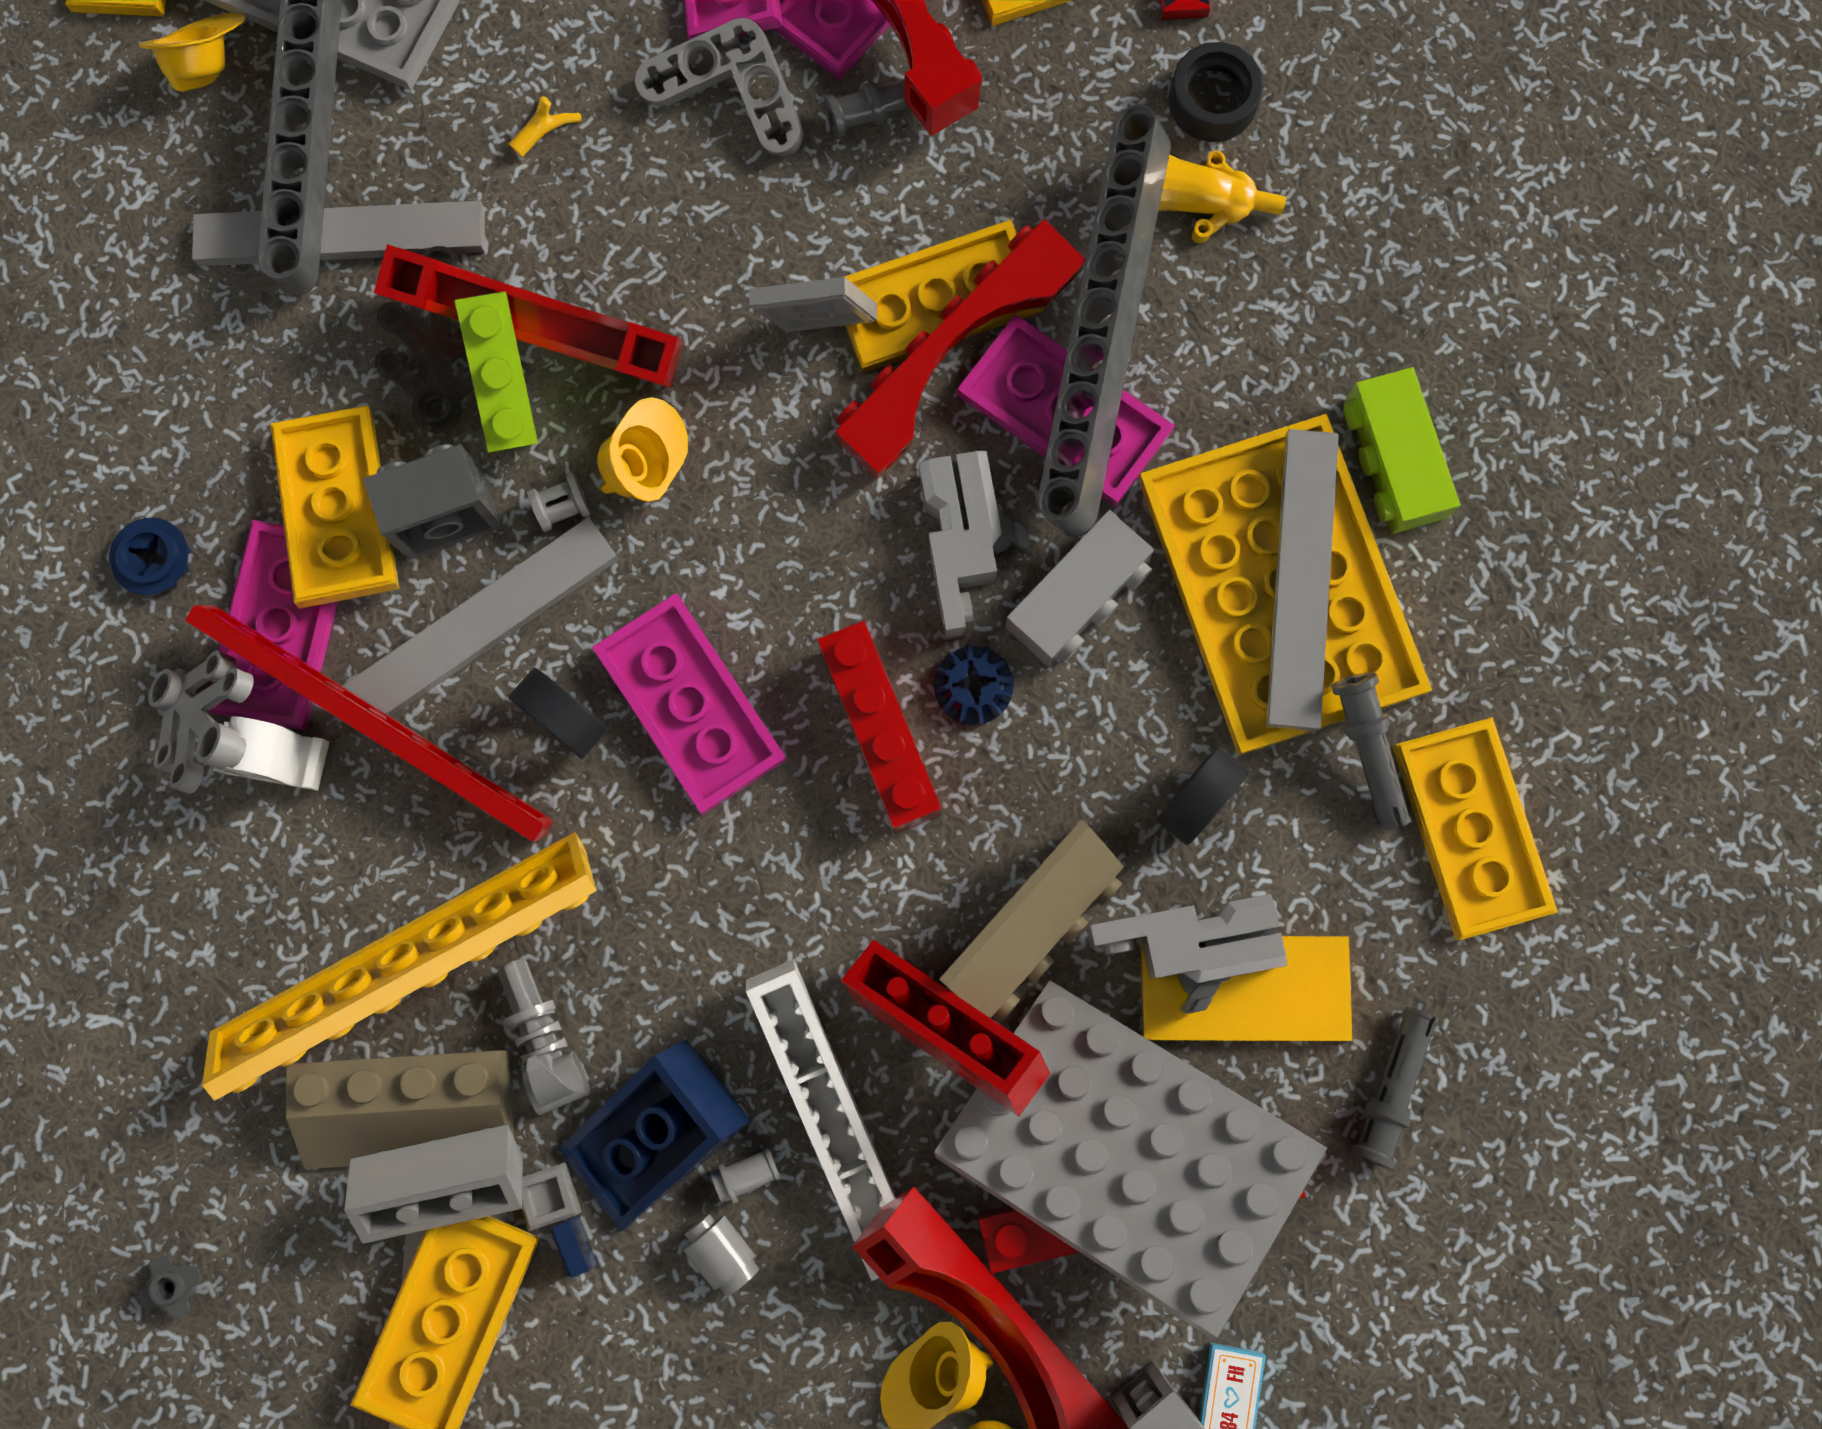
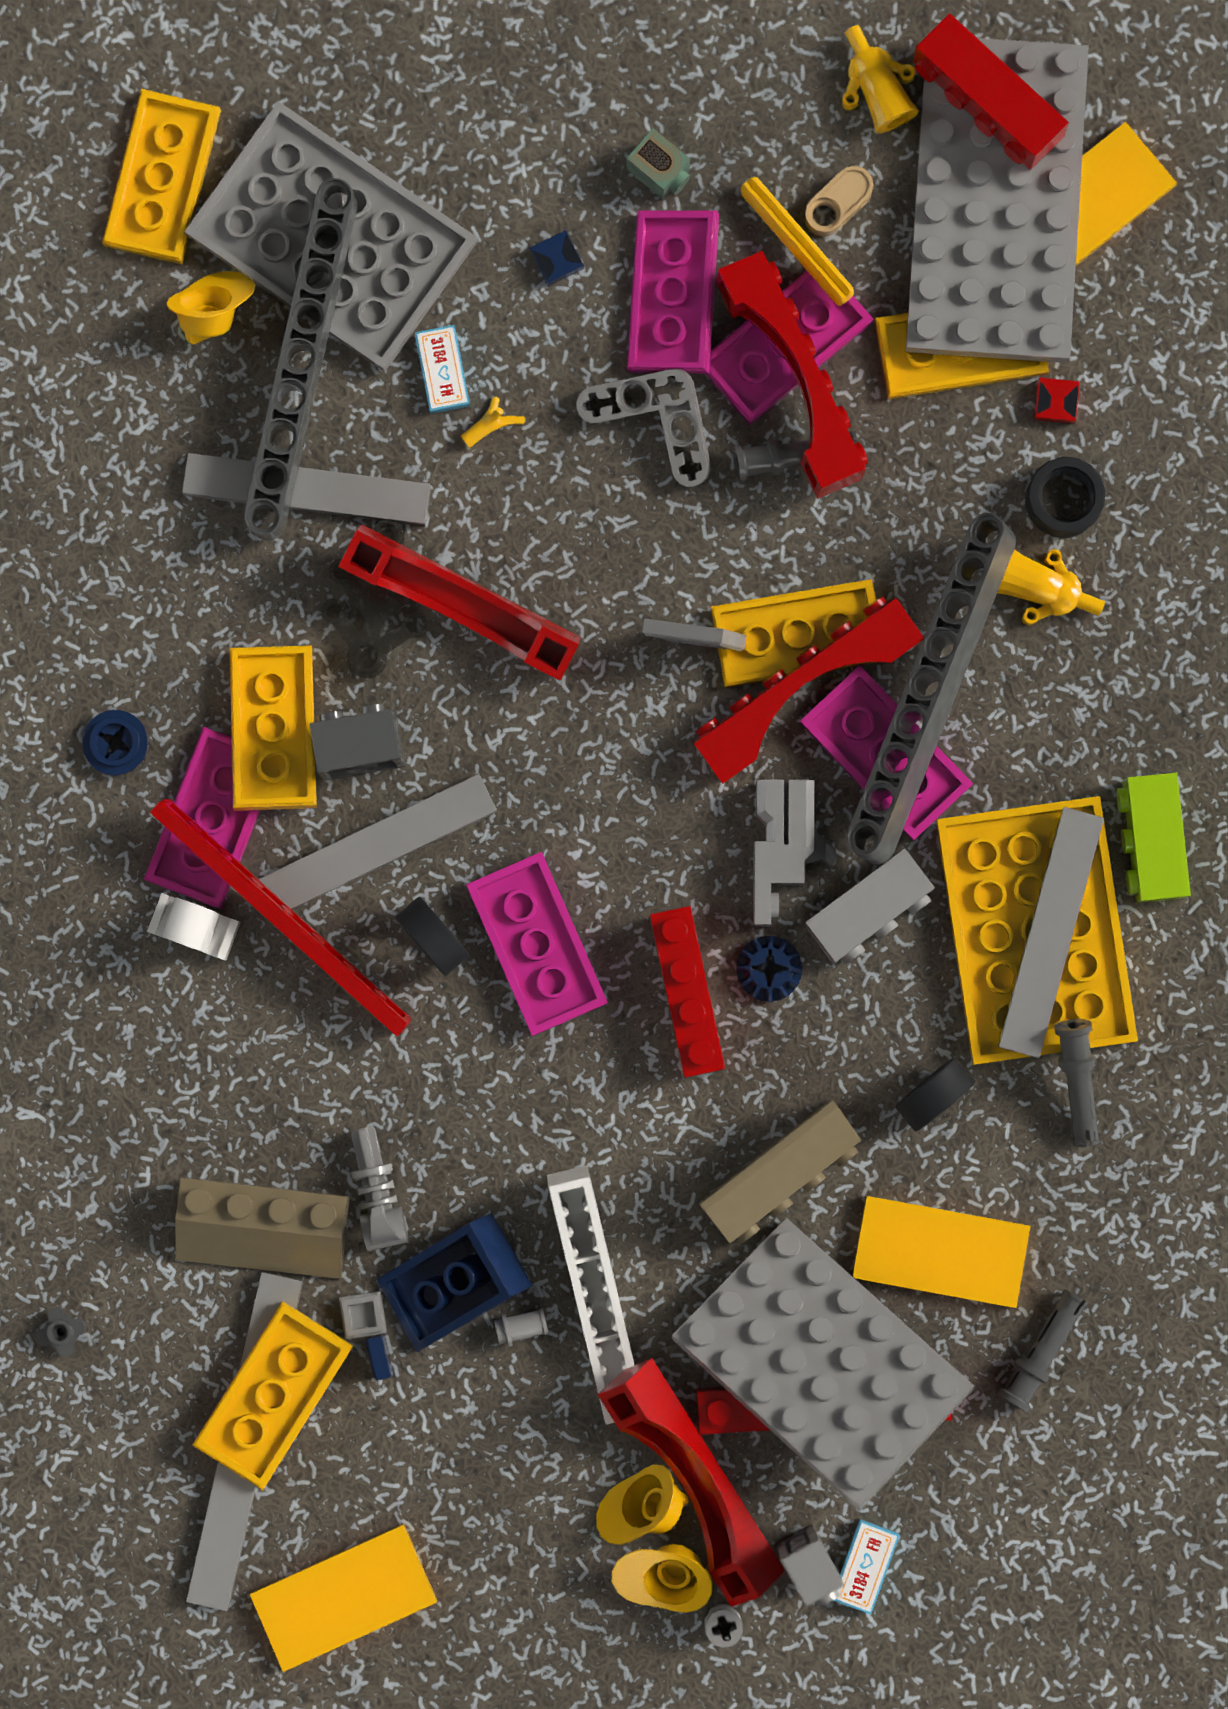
camera: 10 degrees right, 5 degrees up
(175, 698) = (121, 864): light grey plant -> none
(396, 966) = (277, 1114): yellow plate -> none
(434, 1184) = (283, 1290): light grey brick -> none
(477, 76) = (442, 369): none -> white tile
(496, 371) = (426, 644): lime brick -> none
(569, 491) = (447, 767): light grey bush -> none
(643, 451) = (533, 729): yellow piece -> none
(720, 1254) = (491, 1383): light grey brick -> none
(947, 1027) = (698, 1241): red brick -> none
(1199, 951) = (908, 1217): light grey plate -> none
(1474, 829) = (1150, 1157): yellow tile -> none

